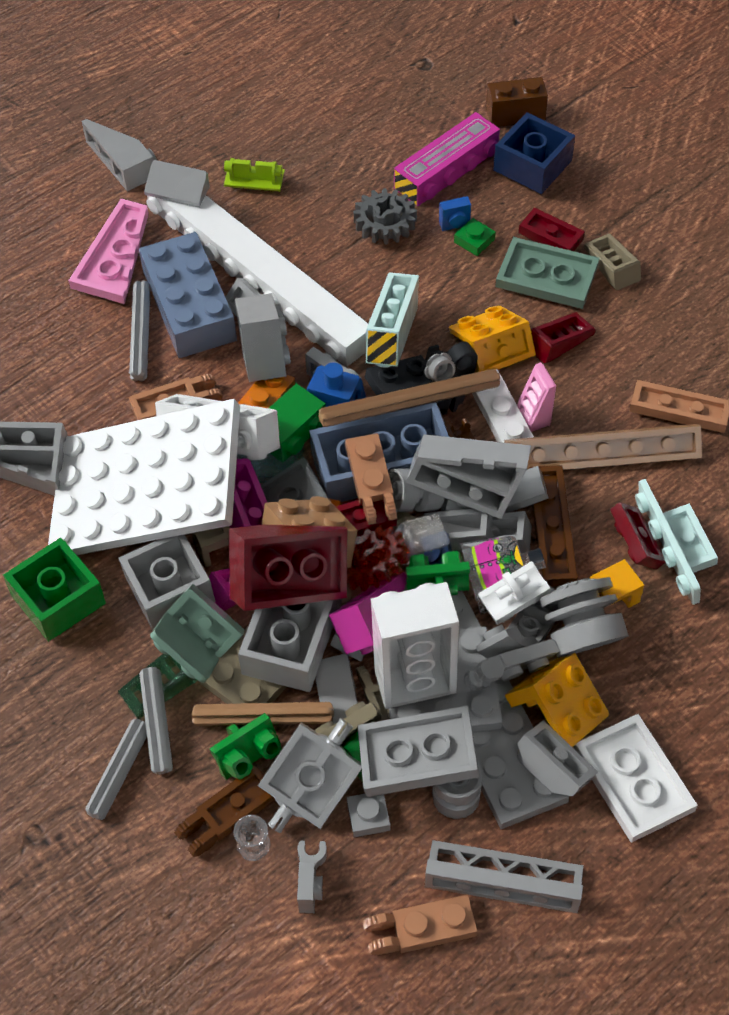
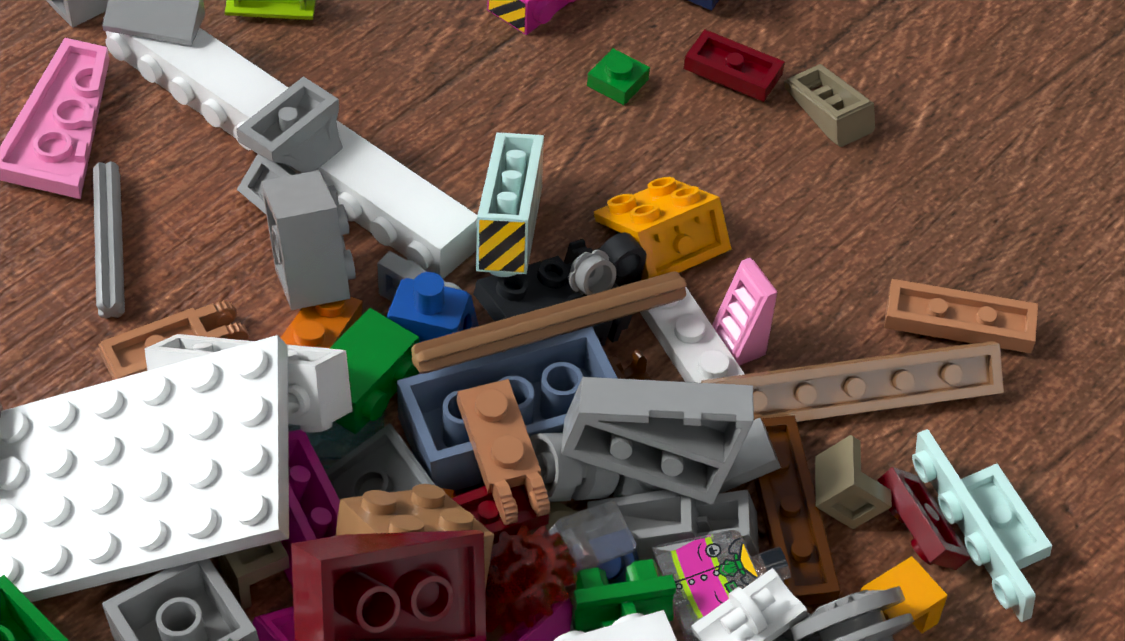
camera: 10 degrees left, 5 degrees down
(188, 294) = (182, 180): sand blue brick -> none
(260, 264) = (295, 128): none -> light grey slope
(385, 216) = (479, 50): dark grey gear -> none
(454, 213) = (585, 42): blue plate -> none
(547, 272) = (735, 124): sand green plate -> none
(549, 349) = (761, 222): dark red slope -> none
(587, 514) = (844, 489): none -> dark tan panel

